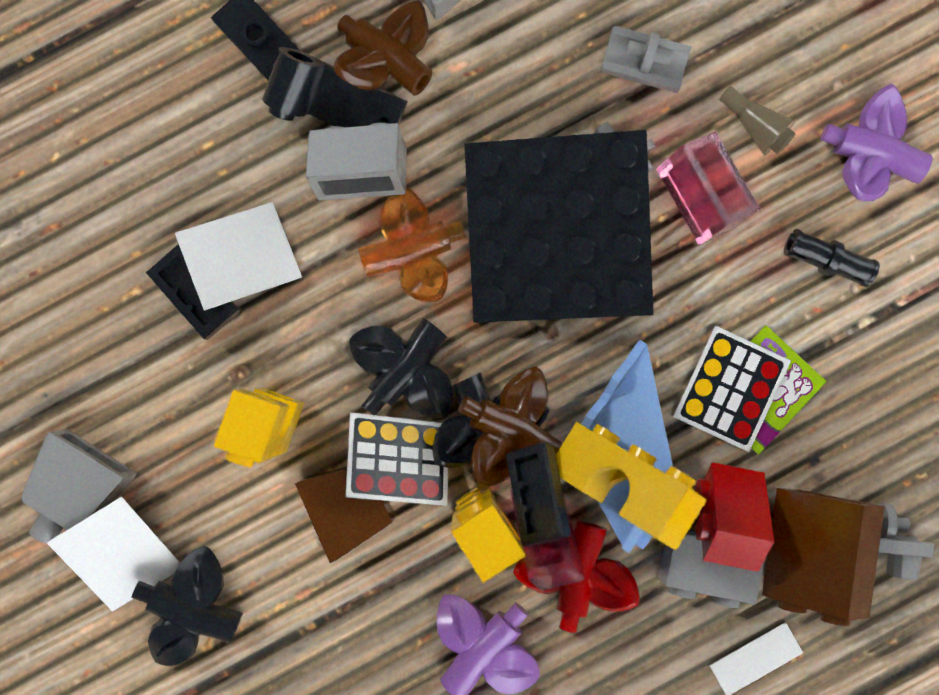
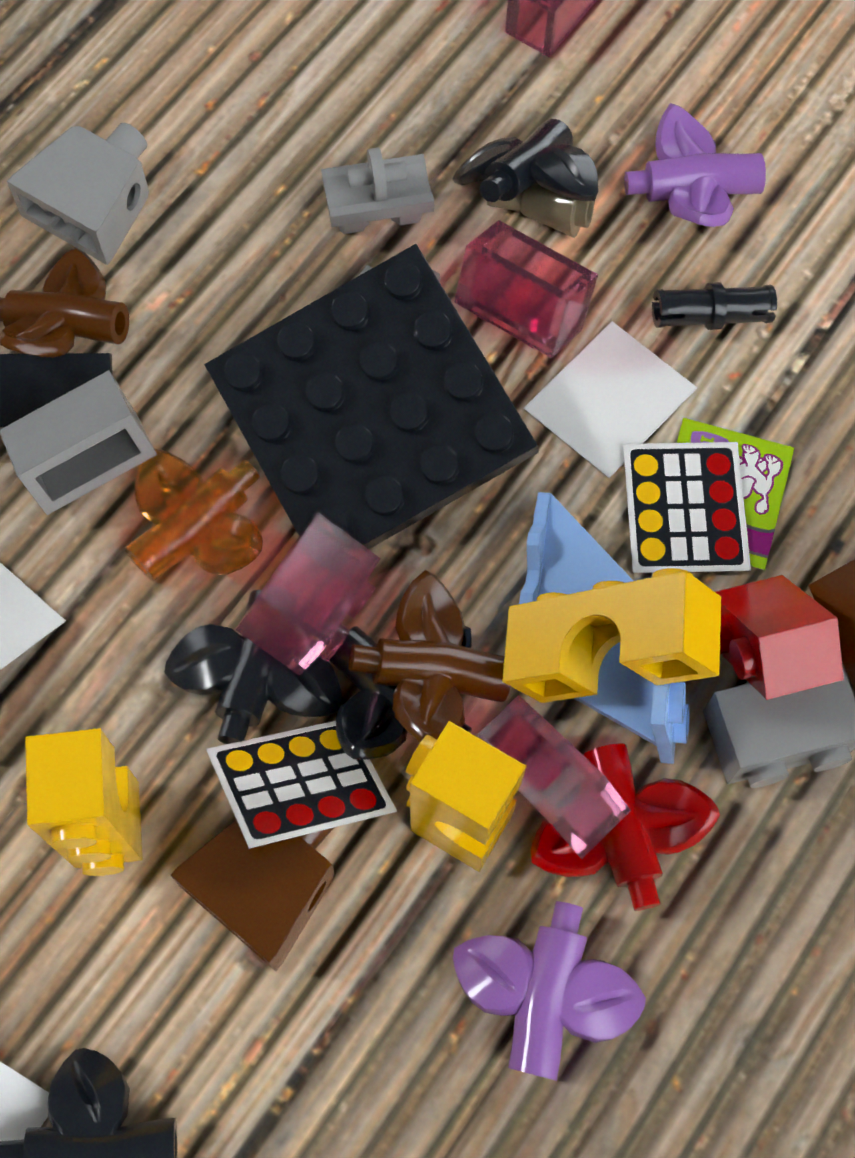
camera: 25 degrees left, 20 degrees down
(458, 346) = (310, 595): none -> clear pink brick
(538, 494) = (507, 710): black plate -> none
(725, 286) = (610, 398): none -> white sticker
(769, 89) = (543, 158): none -> black plant

